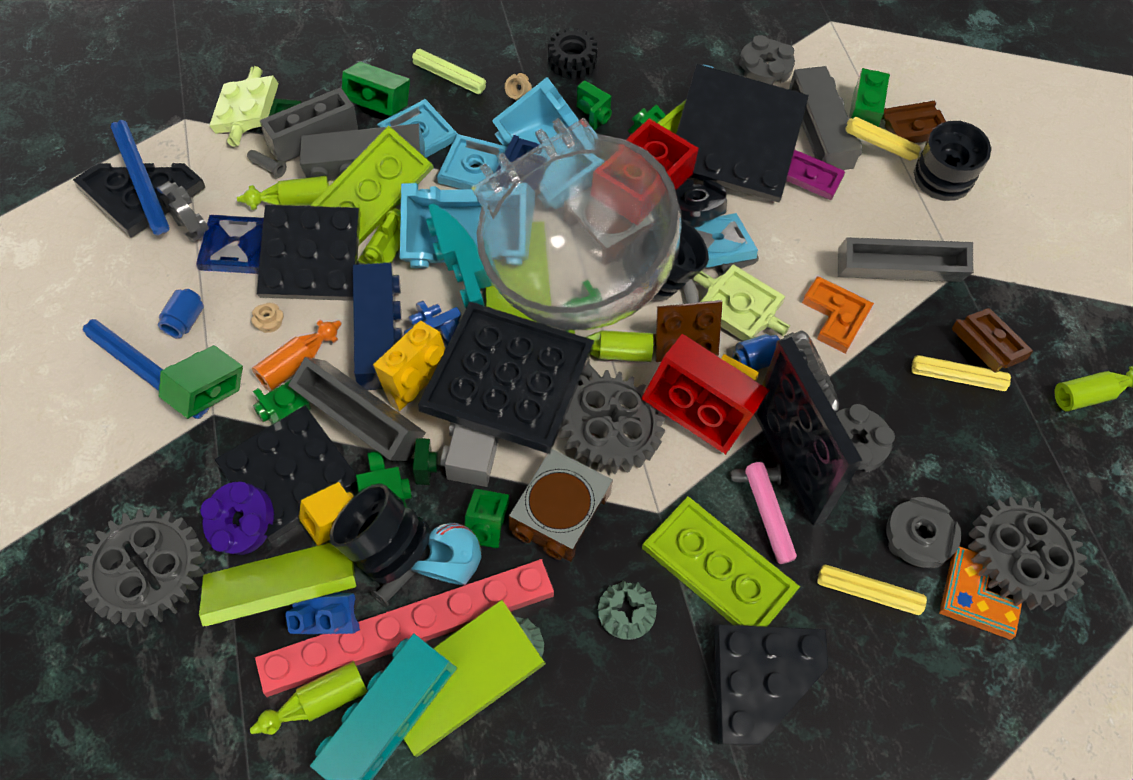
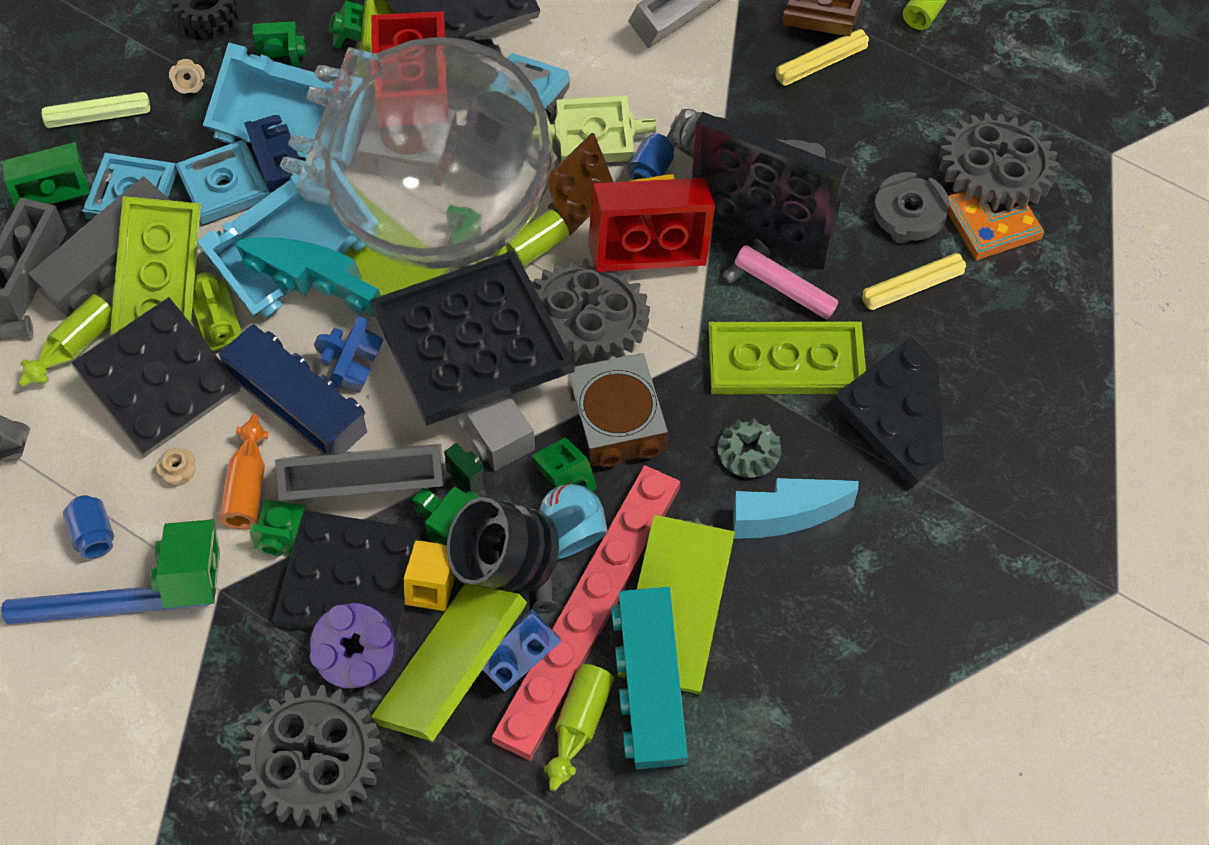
camera: 40 degrees left, 0 degrees up
(216, 248) = (86, 419): clear blue piece -> none
(410, 364) = (374, 392): yellow plate -> none
(609, 678) = (791, 507): none -> medium azure slope
(844, 310) = (678, 70): orange tile -> none

